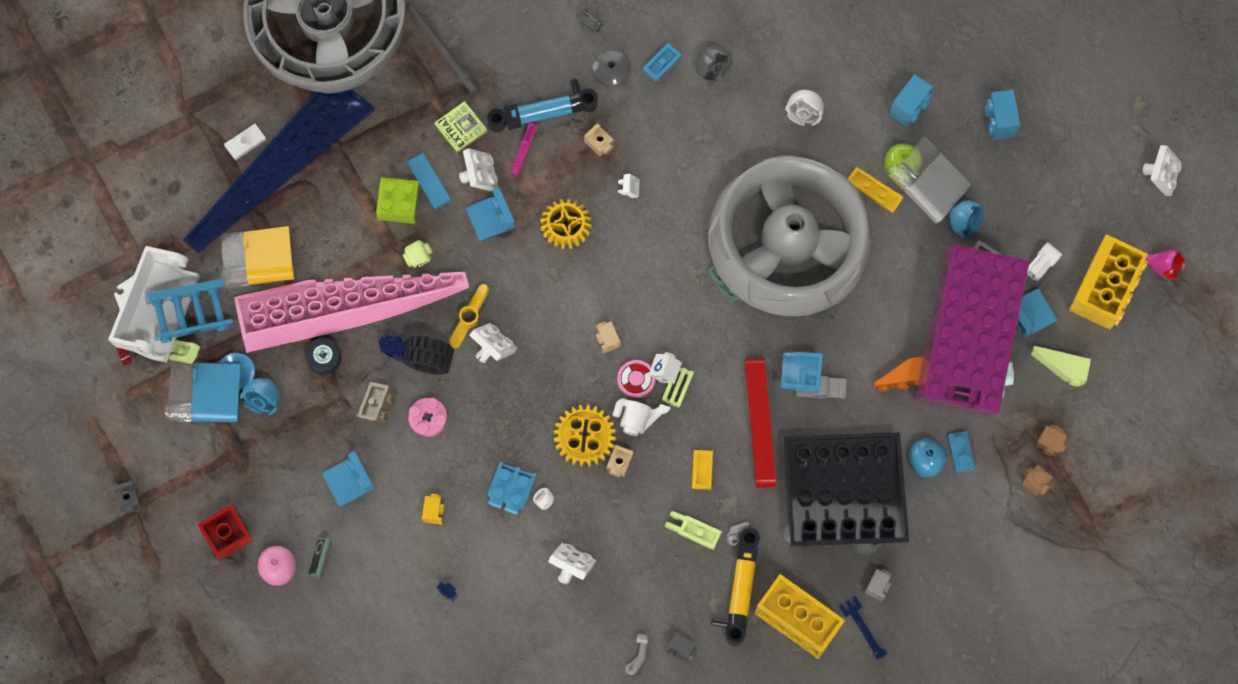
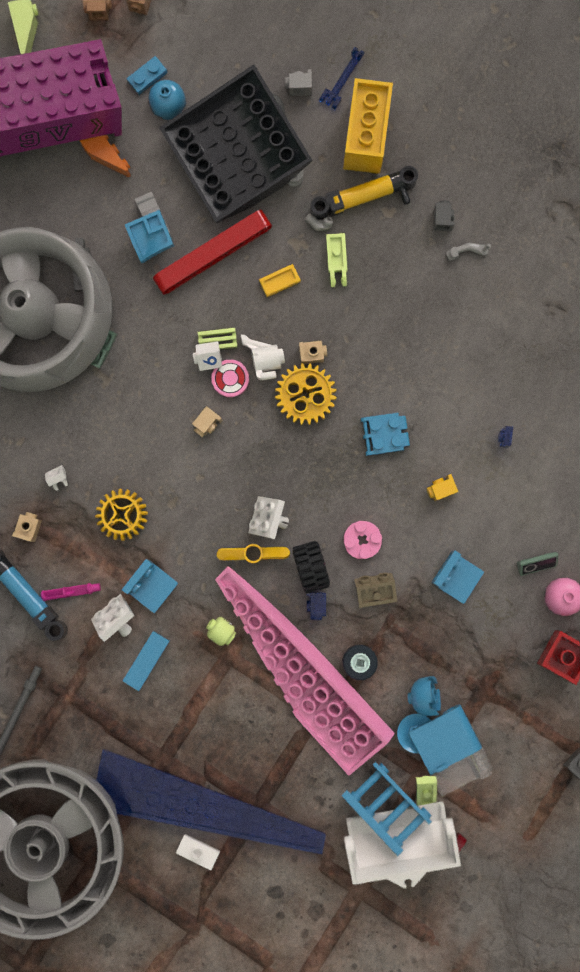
camera: 115 degrees left, 10 degrees up
(256, 257) = (300, 776): yellow door -> none
(398, 200) = (180, 677): lime brick -> none
(460, 127) = (79, 660): yellowish green tile -> none
(543, 498) = (379, 400): white tile -> none
(571, 562) = (424, 343): white plate -> none

